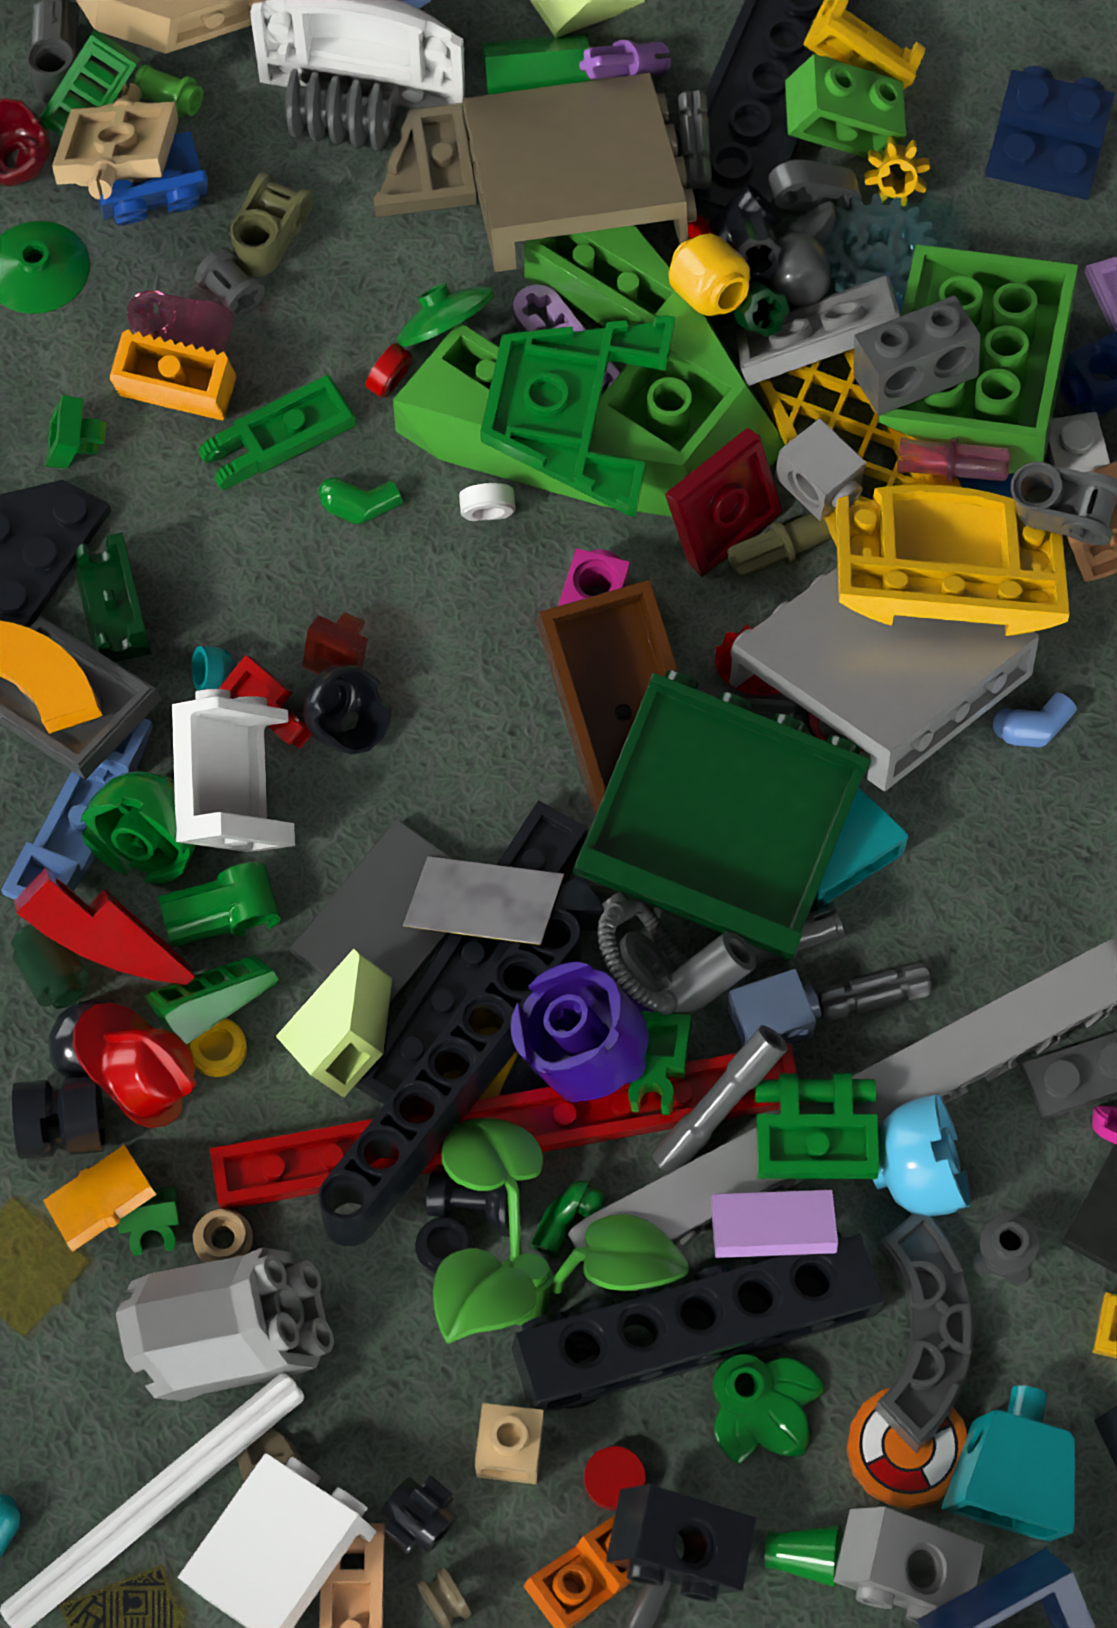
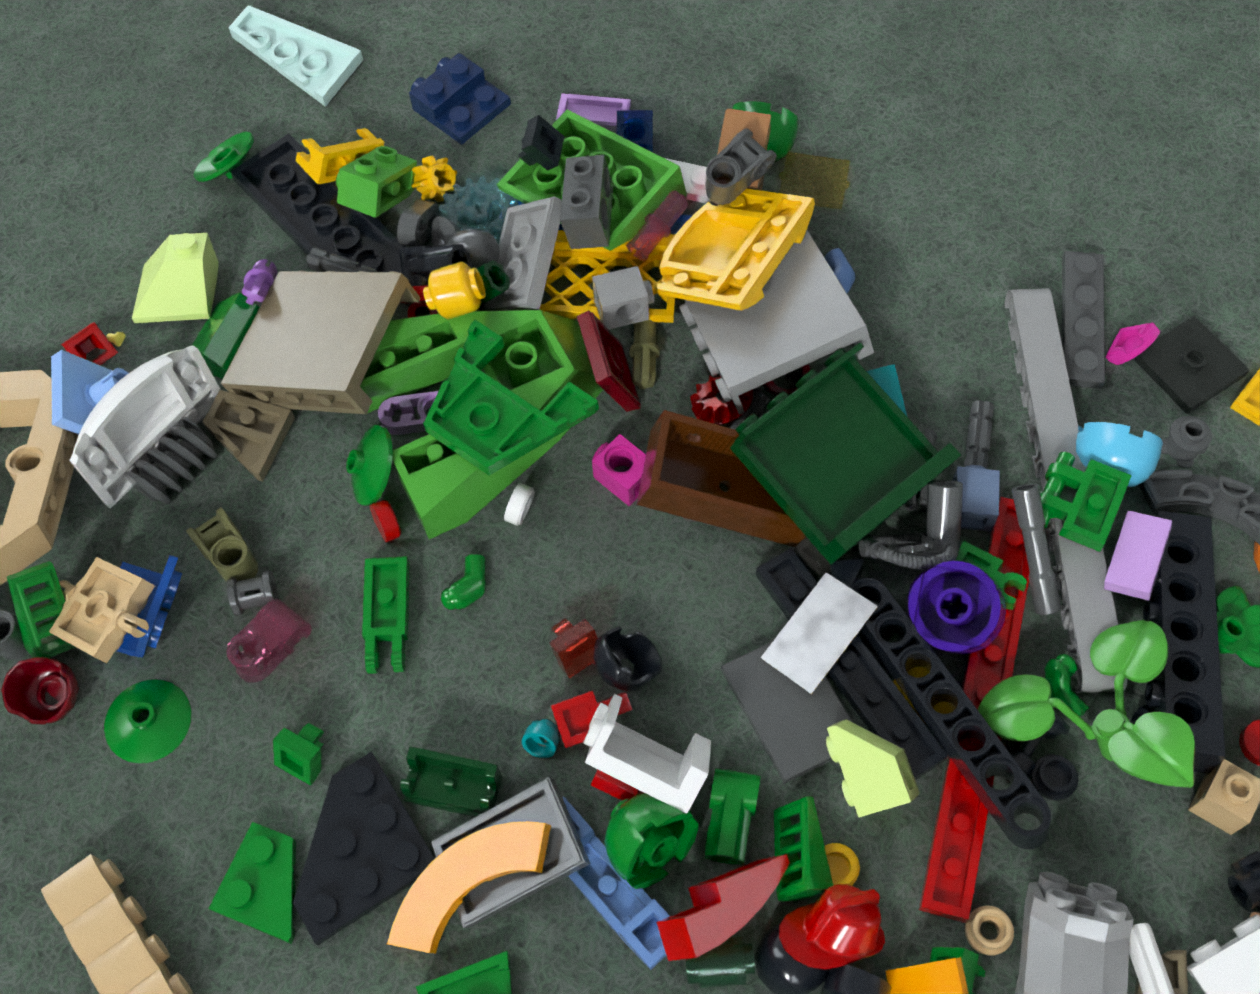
camera: 60 degrees left, 5 degrees down
(164, 87) = (77, 564): bright green pin -> none
(173, 375) = (304, 657): light orange brick -> none
(990, 261) = (541, 144): none -> black tile

